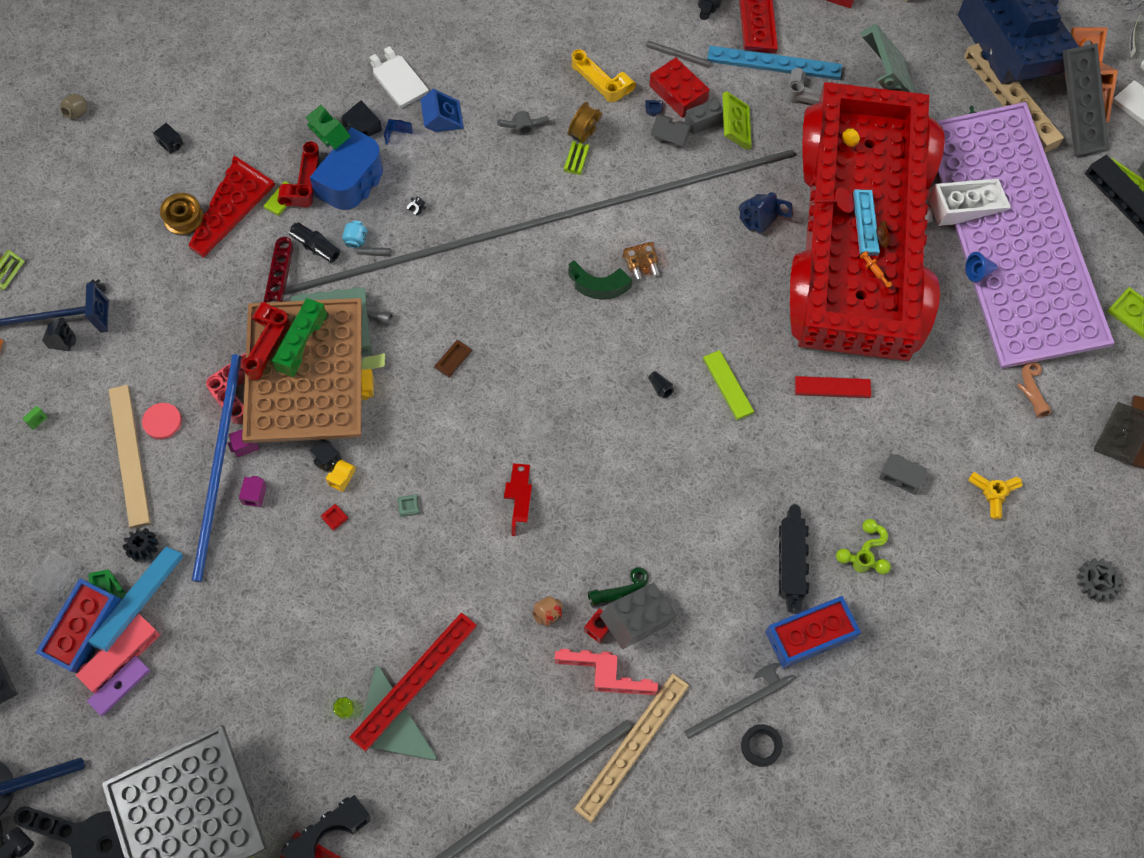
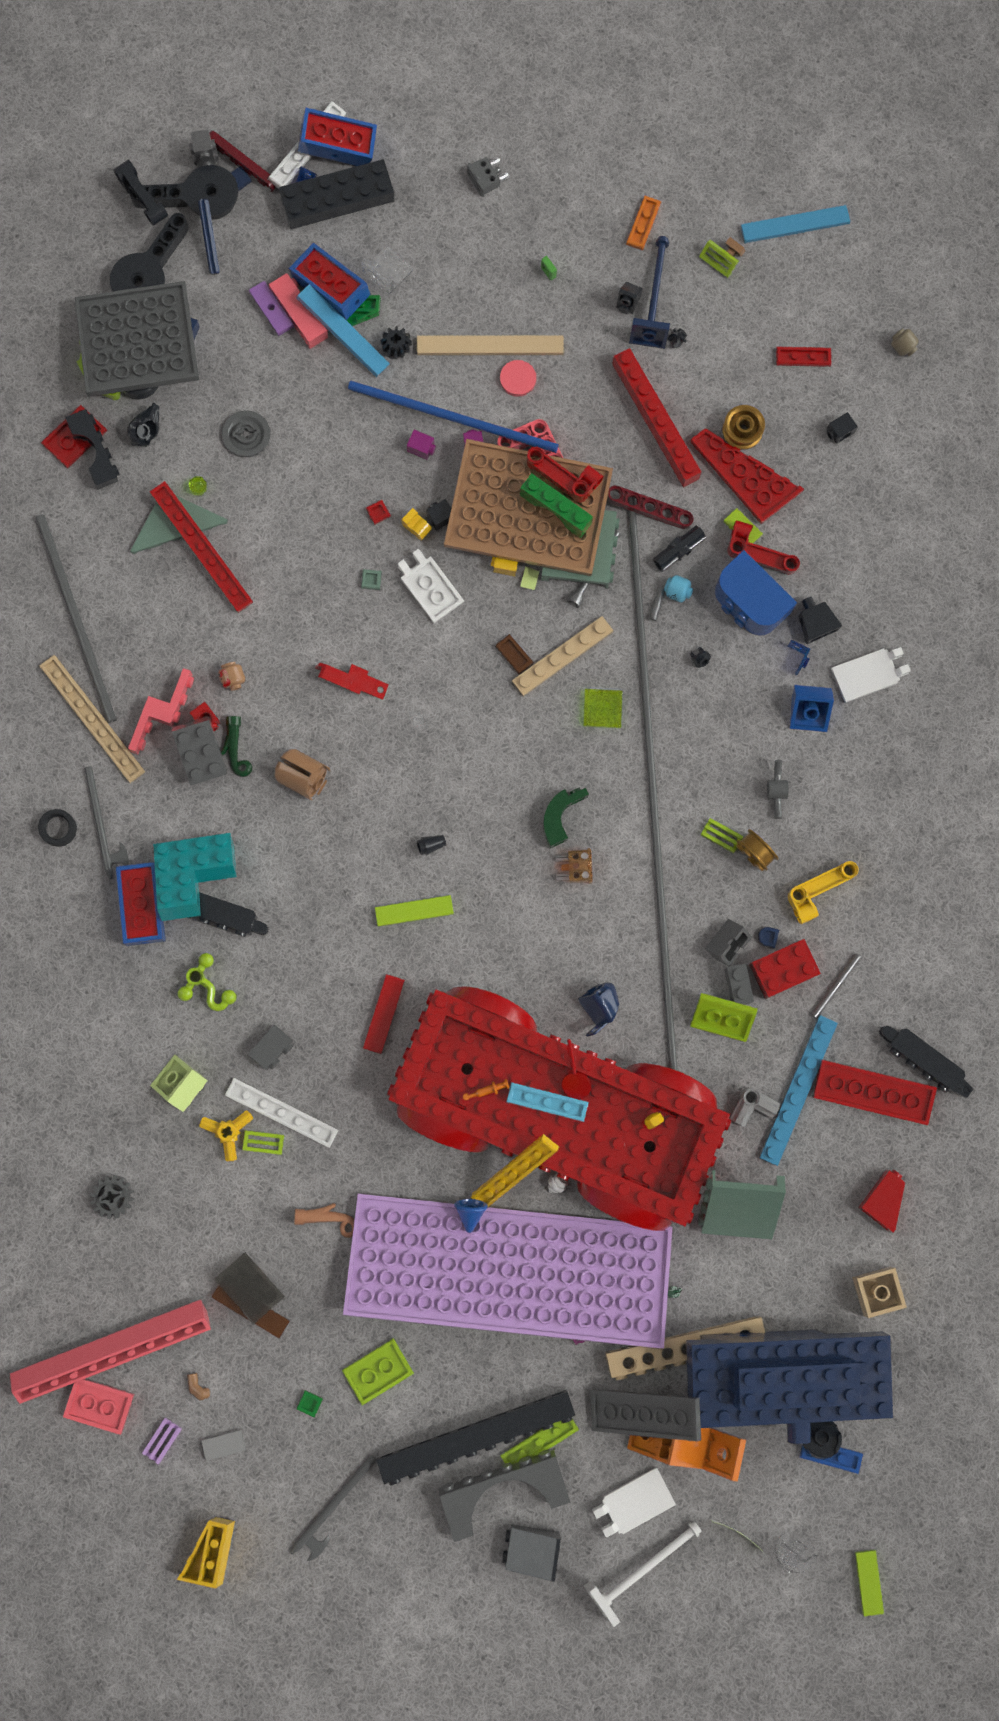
camera: 100 degrees right, 15 degrees up
(99, 184) = (803, 356): none -> red tile
(183, 287) = (656, 417): none -> red brick
(258, 669) = (235, 427): none -> dark grey gear
(286, 785) = (144, 426): none -> black hair
(326, 128) = (823, 579): green arch -> none
(403, 448) = (430, 586): none -> white tile
(444, 317) = (562, 656): none -> tan plate
(486, 273) = (602, 708): none -> clear neon green tile
(620, 511) = (308, 780): none -> medium nougat cylinder
(763, 598) = (184, 865): none -> teal piece
(882, 234) = (525, 1111): reddish brown rock -> none
(936, 230) = (515, 1170): none -> yellow tile
(956, 452) = (281, 1112): none -> white tile
(966, 200) = (555, 1233): white slope -> none
(969, 549) = (178, 1083): none -> yellowish green slope
(1001, 473) = (280, 1143): none -> lime tile

